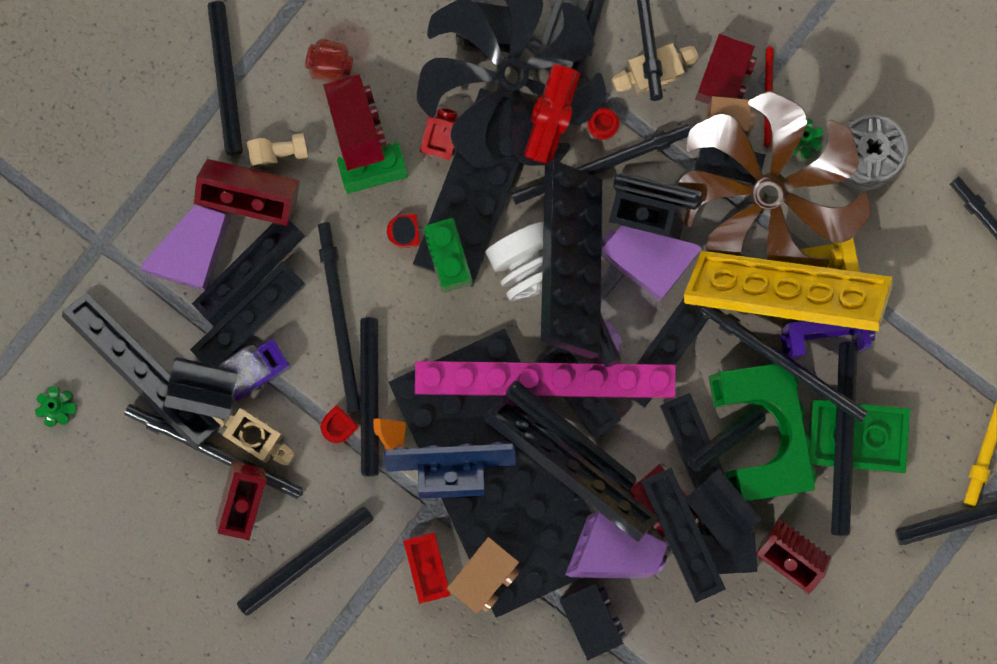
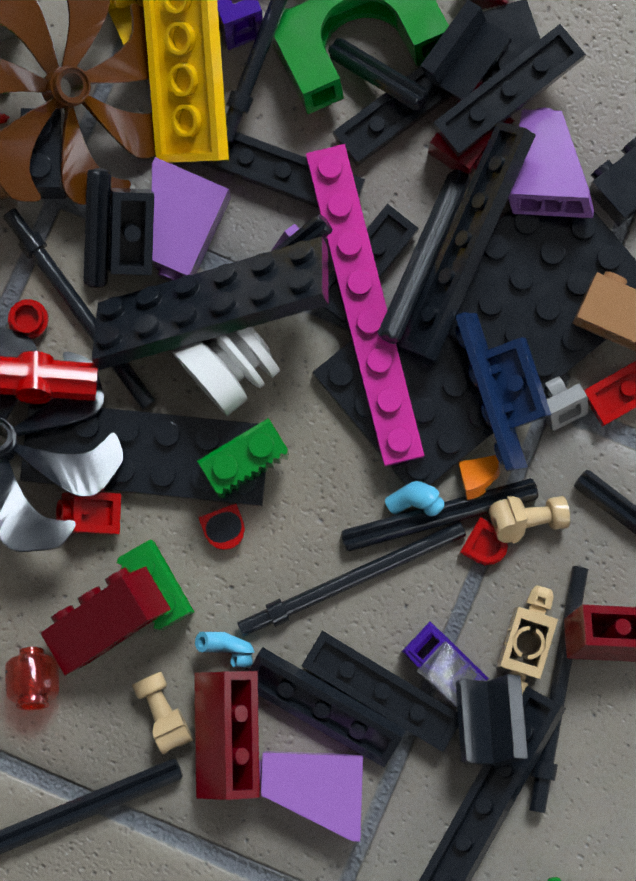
camera: 105 degrees left, 0 degrees up
(317, 208) = (223, 642): none -> medium azure arm
(350, 449) = (512, 518): none -> tan leg
(386, 382) = (417, 495): none -> medium azure arm
(427, 515) = (564, 403): none -> light grey tile

